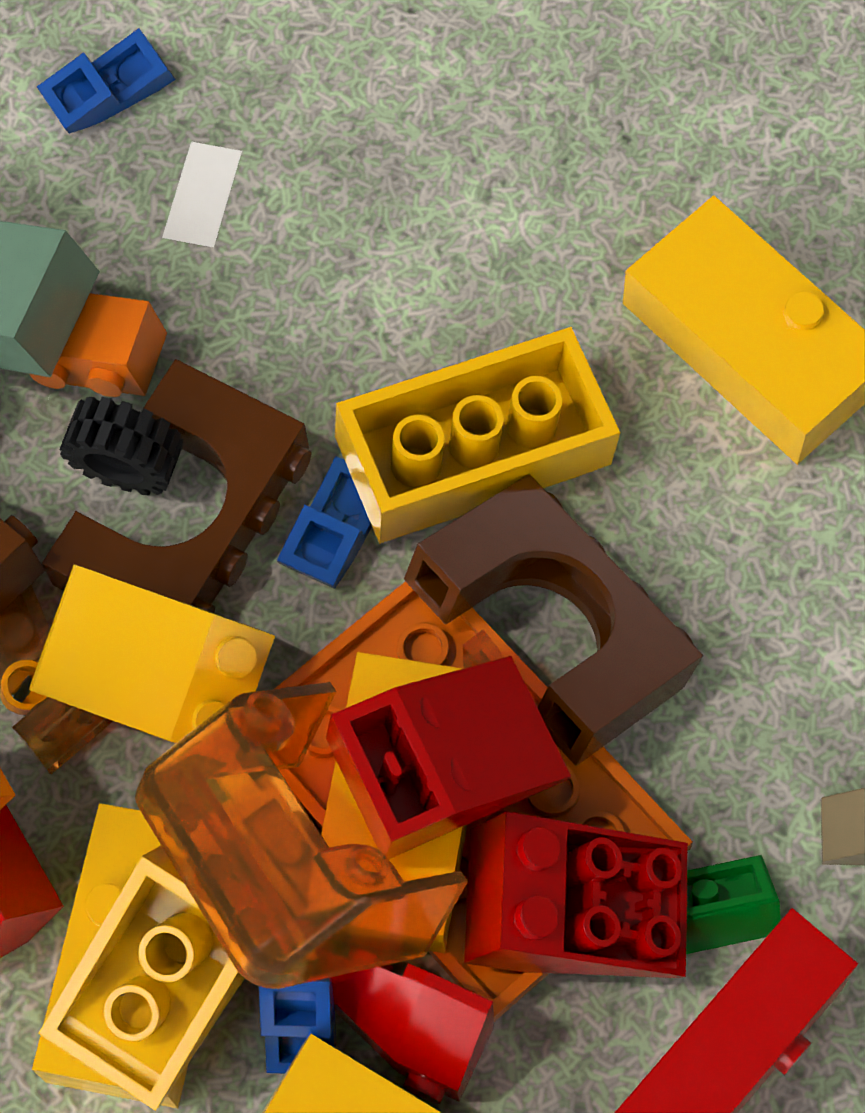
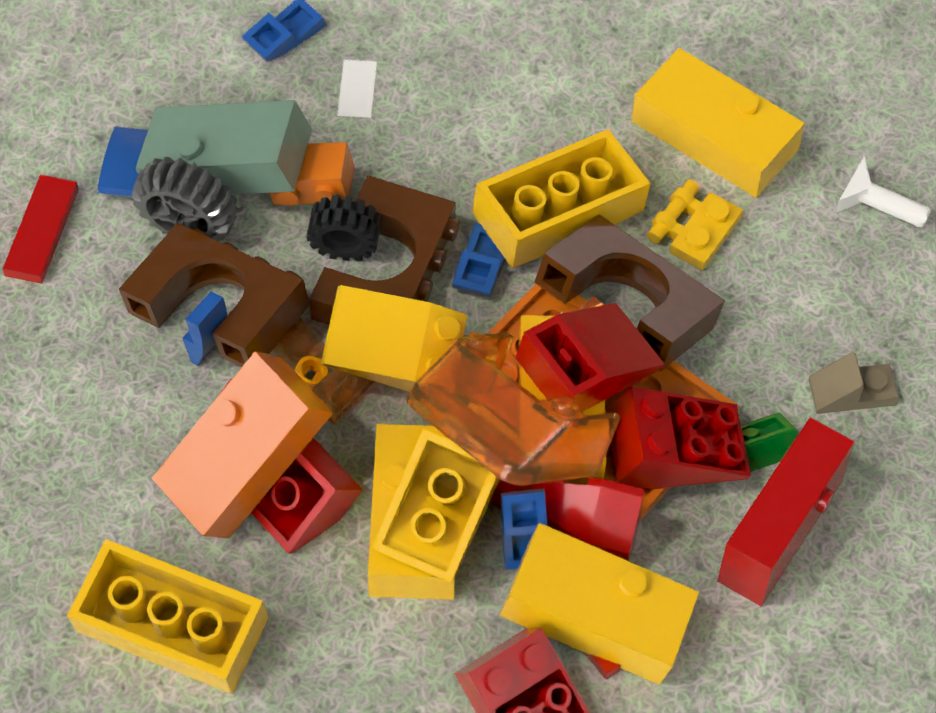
camera: 15 degrees left, 10 degrees down
(701, 515) = (703, 233): none -> yellow plate

